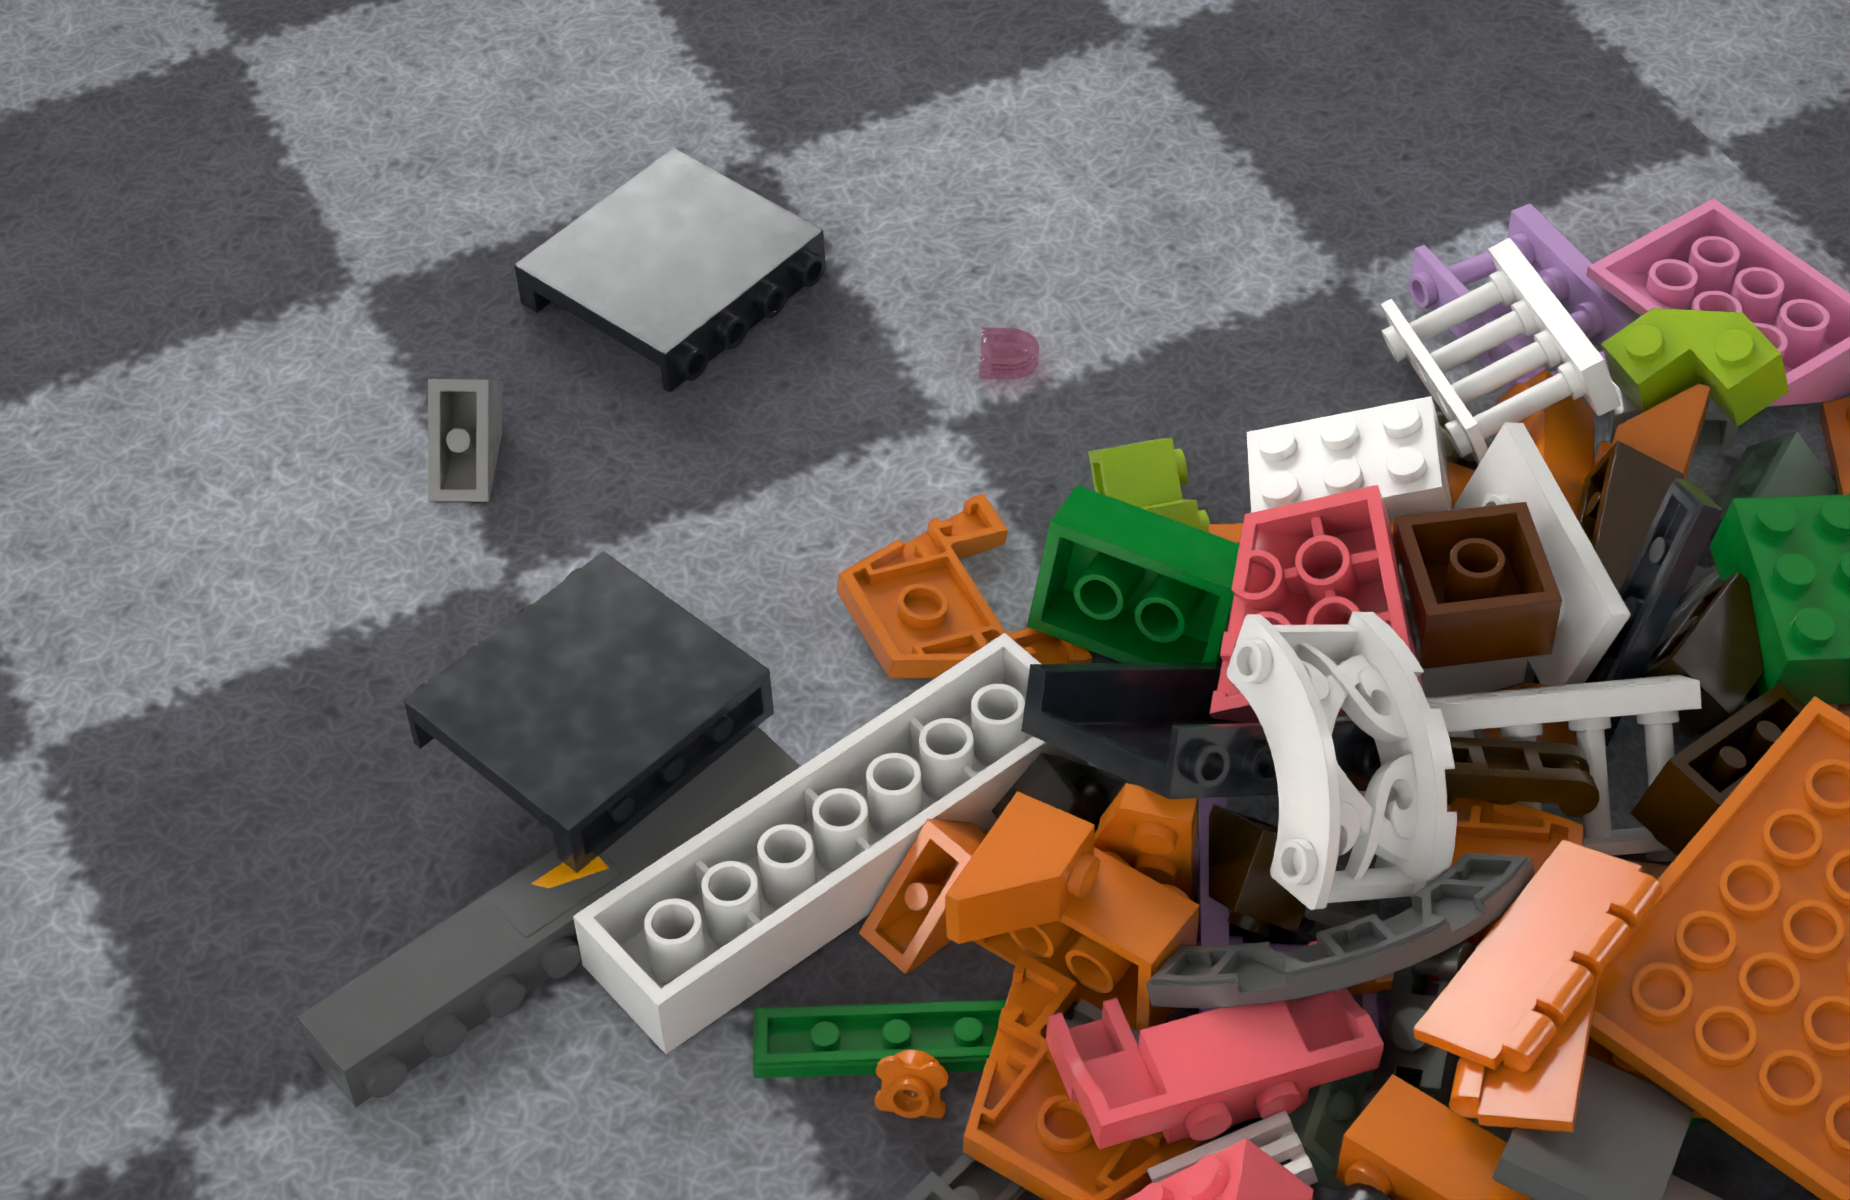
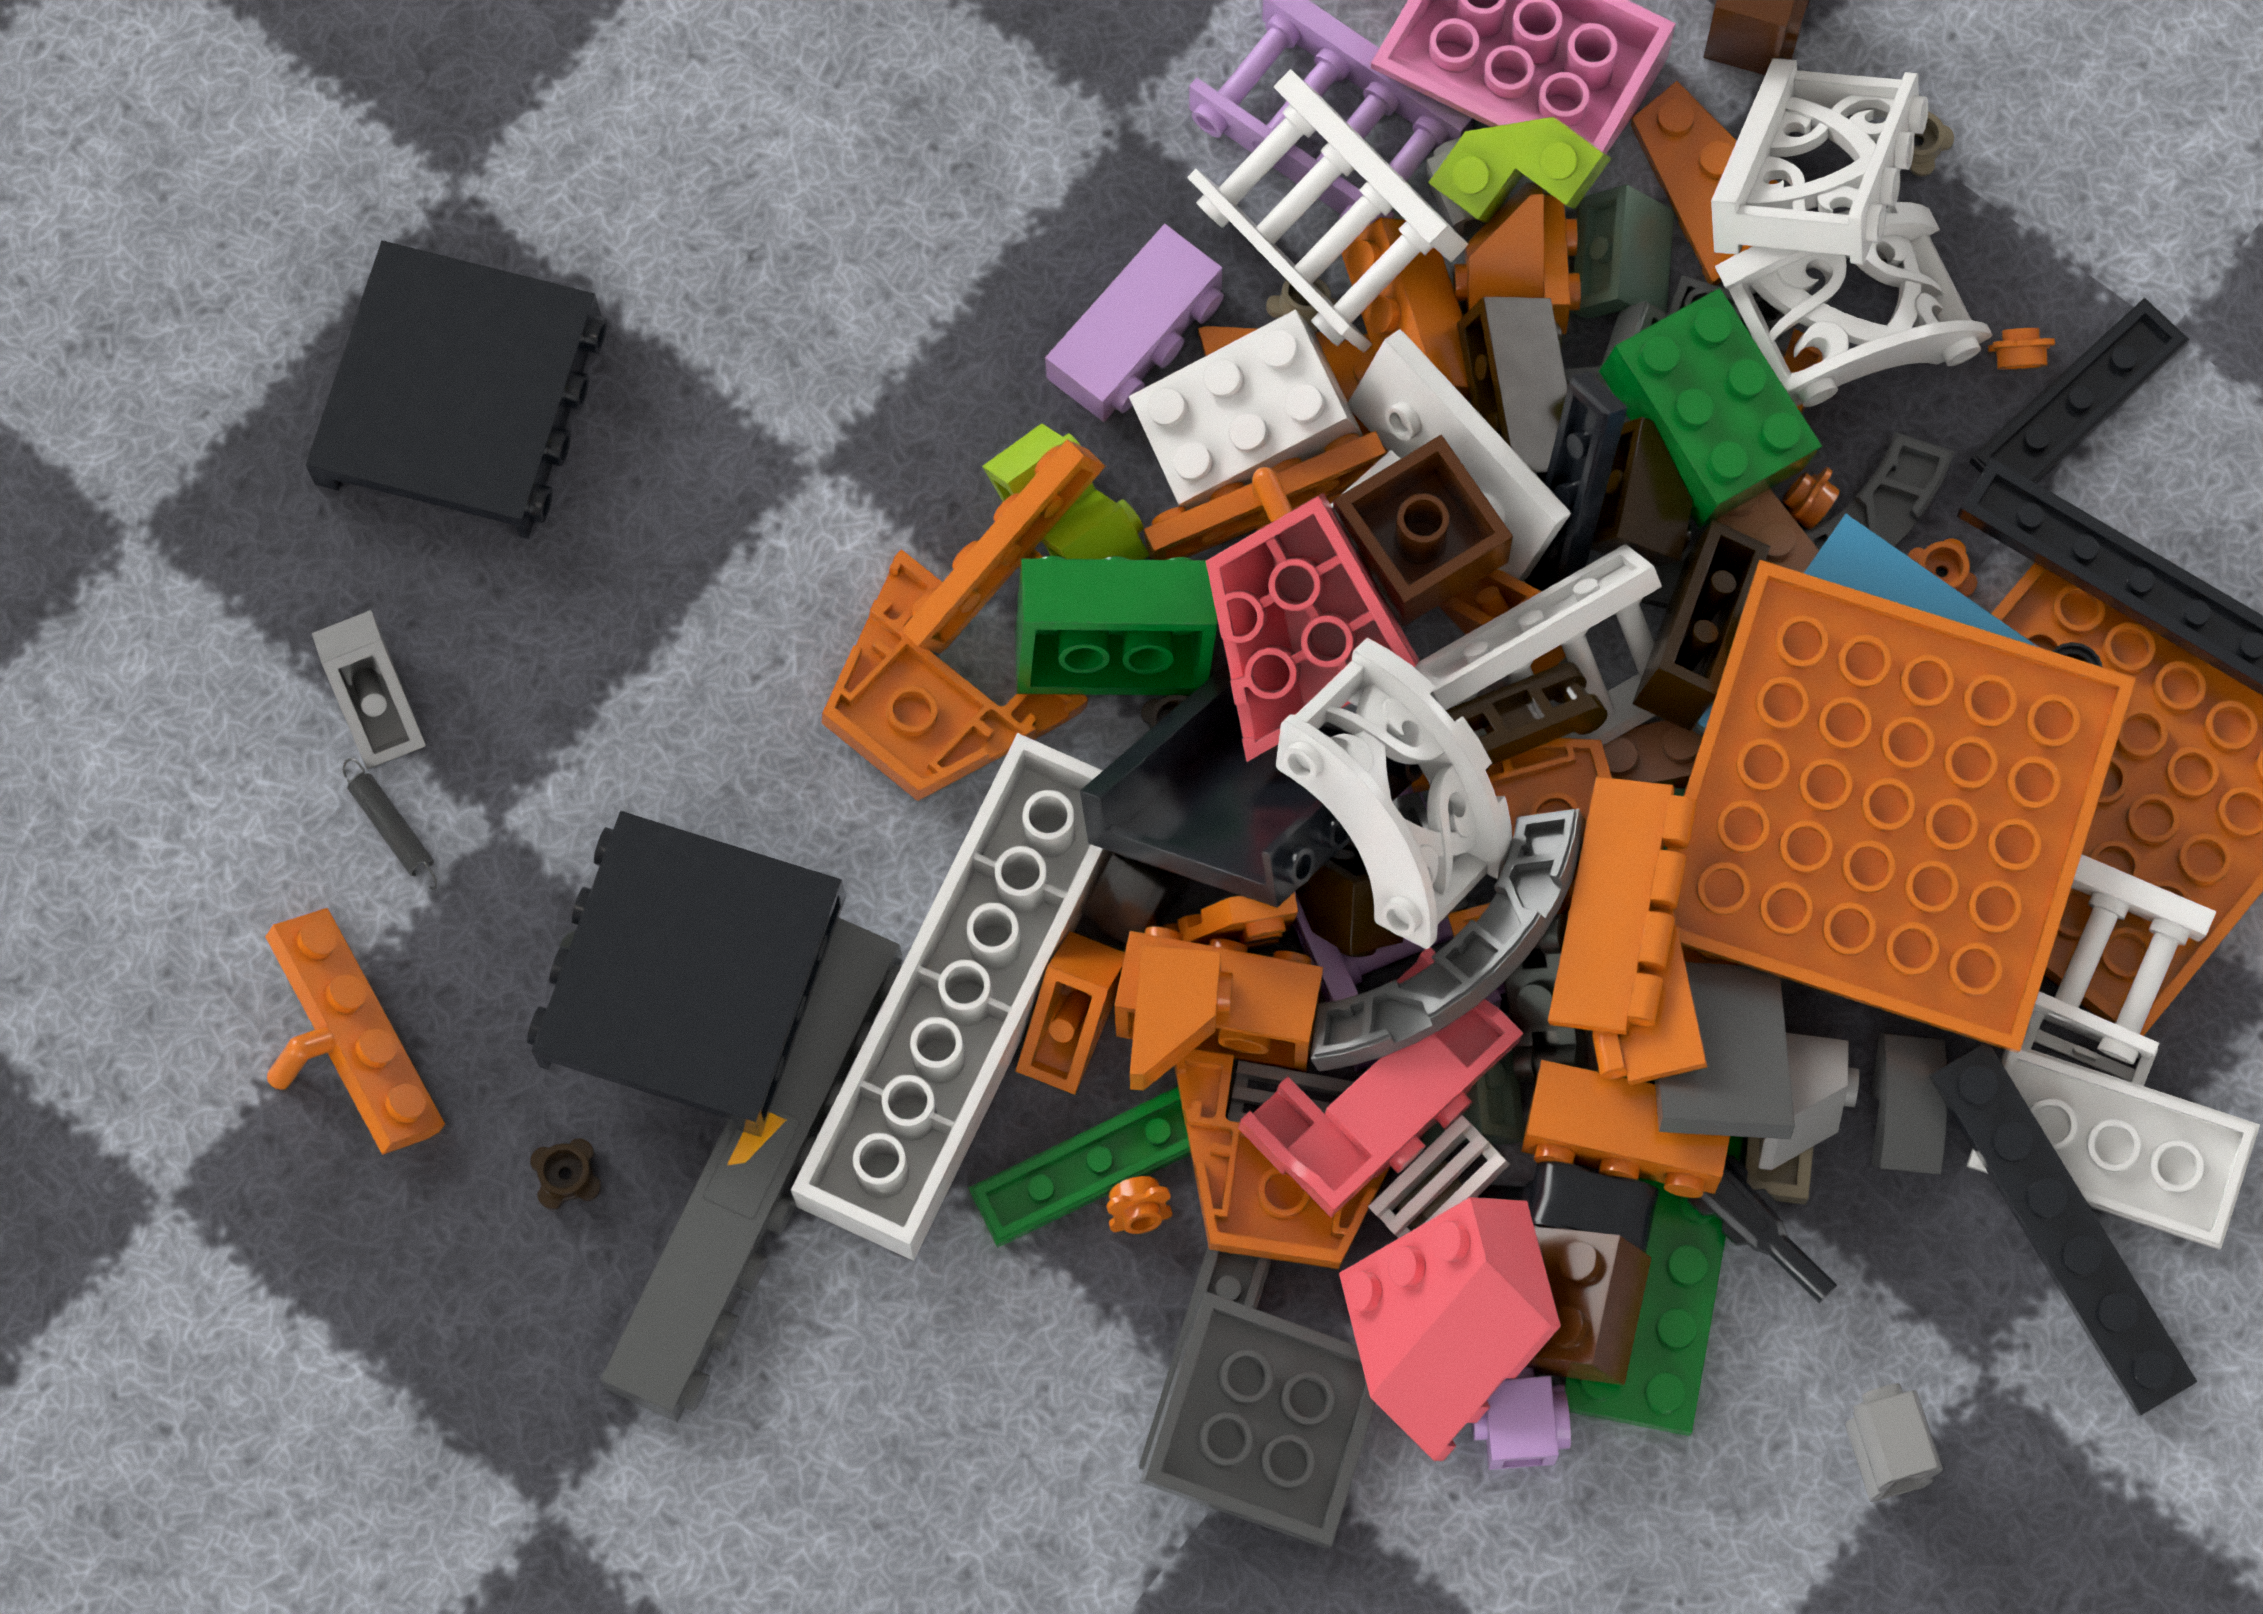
camera: 25 degrees left, 25 degrees up
(278, 674) = (352, 1032): none -> orange plate
(385, 838) = (550, 1162): none -> dark brown plate
(419, 539) = (388, 821): none -> dark grey piece
(1007, 353) = (838, 358): clear pink tile -> none
(1119, 469) = (1016, 531): none -> orange plate
(1283, 389) = (1136, 324): none -> lavender brick
(1711, 457) = (1559, 243): none -> orange plate

